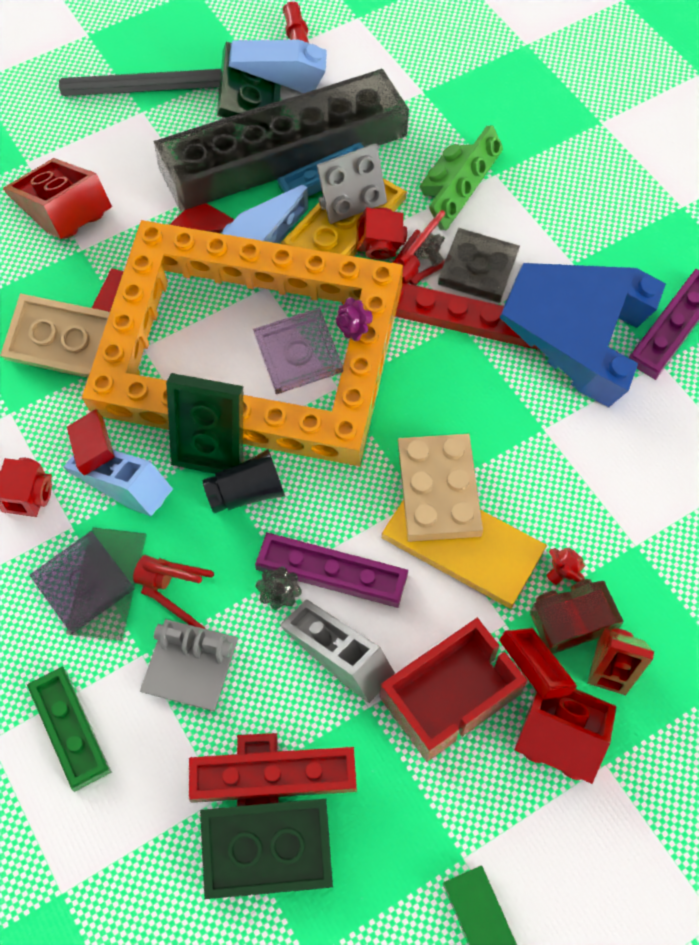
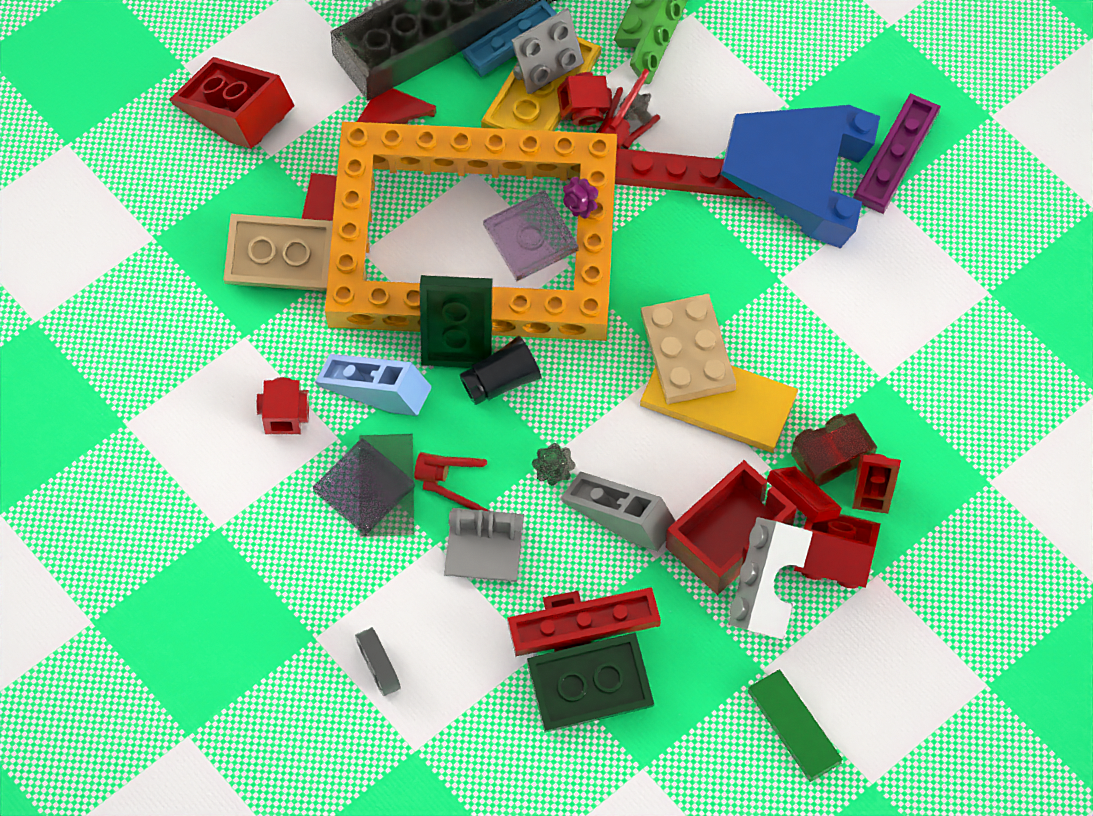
camera: 10 degrees left, 0 degrees up
(43, 783) = (377, 661): none -> dark grey beam
(68, 729) = (386, 615): green tile -> none
(90, 442) = (340, 353): red tile -> none
(271, 219) = (465, 100): light blue slope -> none
(334, 569) = (601, 440): magenta tile -> none
(478, 265) = (690, 118): clear smoke plate -> none
(492, 728) = (770, 549): none -> arch
(566, 565) = (818, 405): red plant -> none

